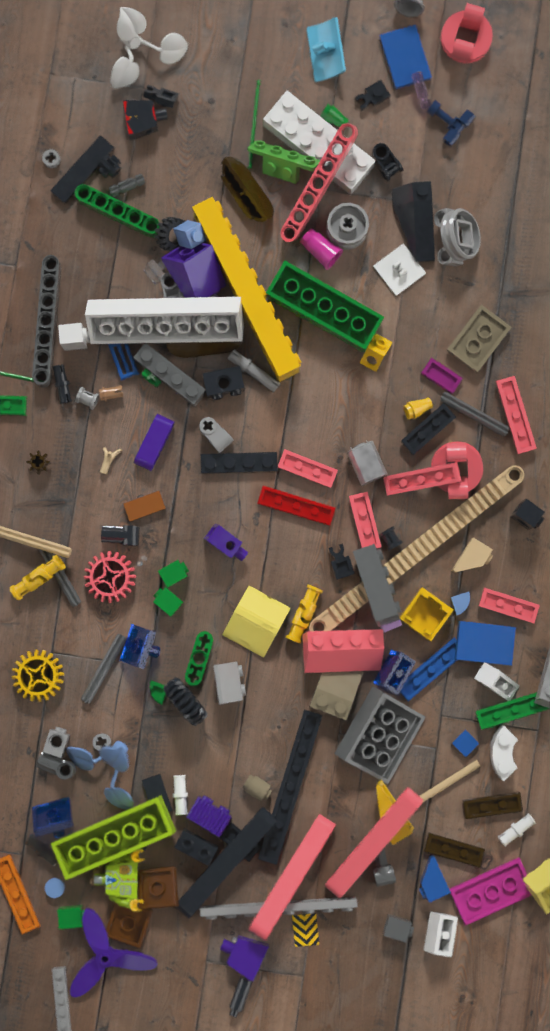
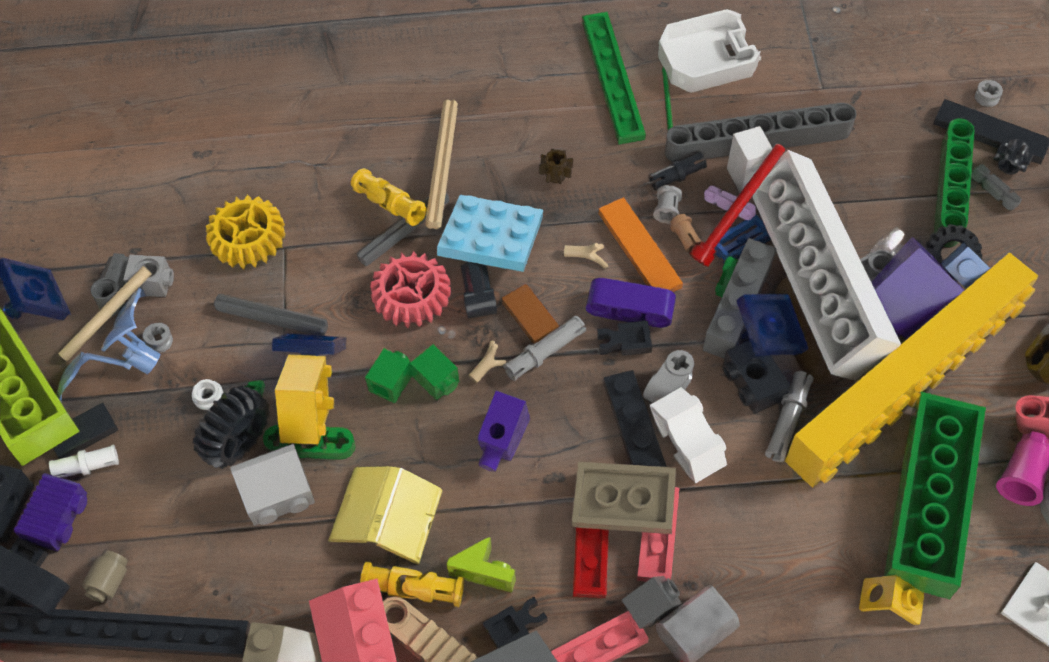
camera: 80 degrees right, 25 degrees down
(80, 771) = (105, 313): none -> tan bar
(81, 517) = (490, 233): none -> medium azure plate
(96, 358) = (725, 200): none -> lavender axle
(113, 425) = (639, 246): none -> orange tile
(129, 385) = (705, 250): none -> red piece
(147, 720) = (201, 389): none -> white plate
(171, 539) = (486, 363): none -> tan bar
(174, 508) = (535, 354): none -> light grey pin
(178, 449) = (630, 338): none -> black plate
(179, 655) = (303, 399): none -> yellow container
(198, 363) = (771, 324): none -> clear blue tile
(259, 432) = (698, 447): none -> white brick
(285, 482) = (624, 497): none -> dark tan plate
(301, 577) = (474, 567): none -> lime slope
(348, 483) = (652, 601): none -> dark grey brick

